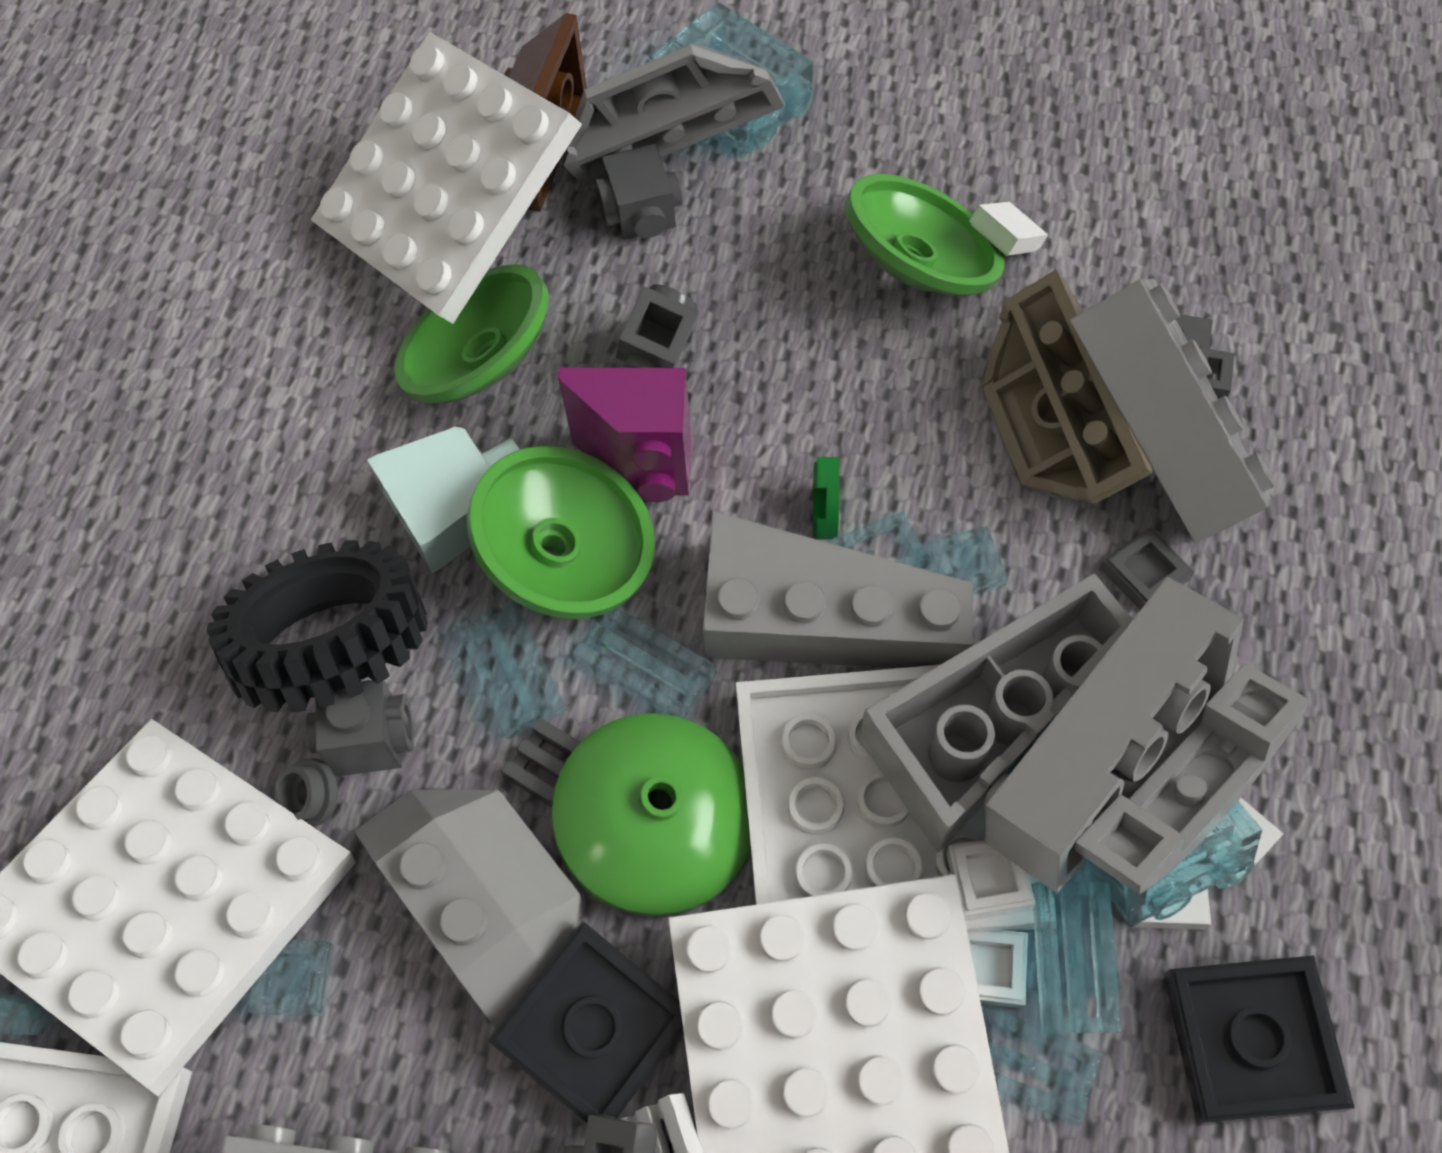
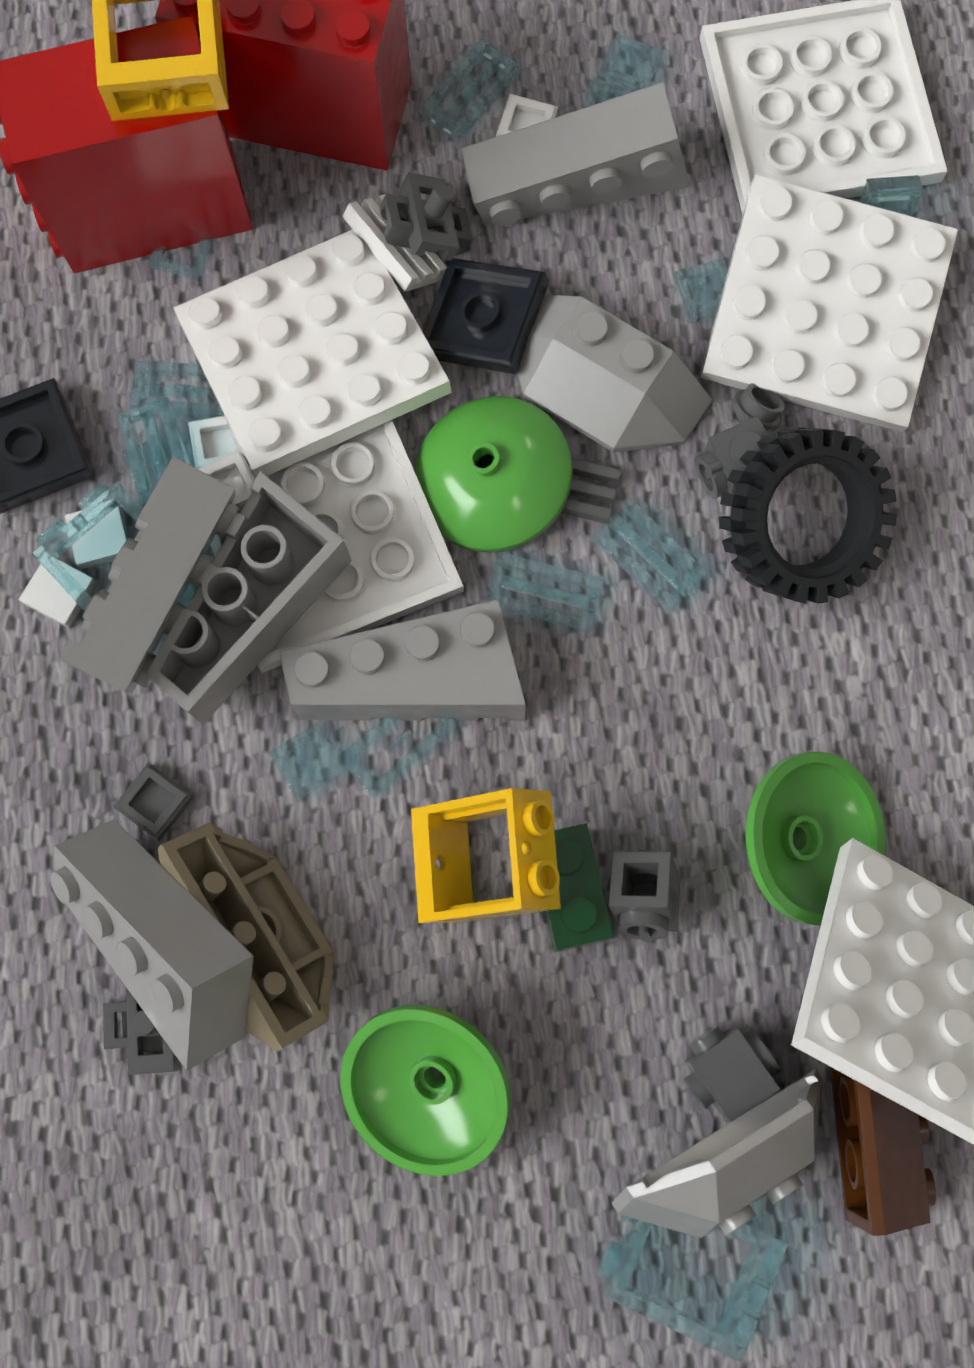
camera: 160 degrees right, 15 degrees up
(432, 489) = (769, 684): light aqua torso -> none
(565, 504) = (614, 656): bright green dish -> none
(632, 423) = (624, 772): magenta slope -> none
(724, 369) = (583, 909): none -> dark green piece
(826, 496) = (440, 777): green tile -> none
(852, 373) = (442, 834): none -> yellow window
(1007, 228) = (347, 1145): white tile -> none
(1197, 784) = (84, 562): light grey slope -> none

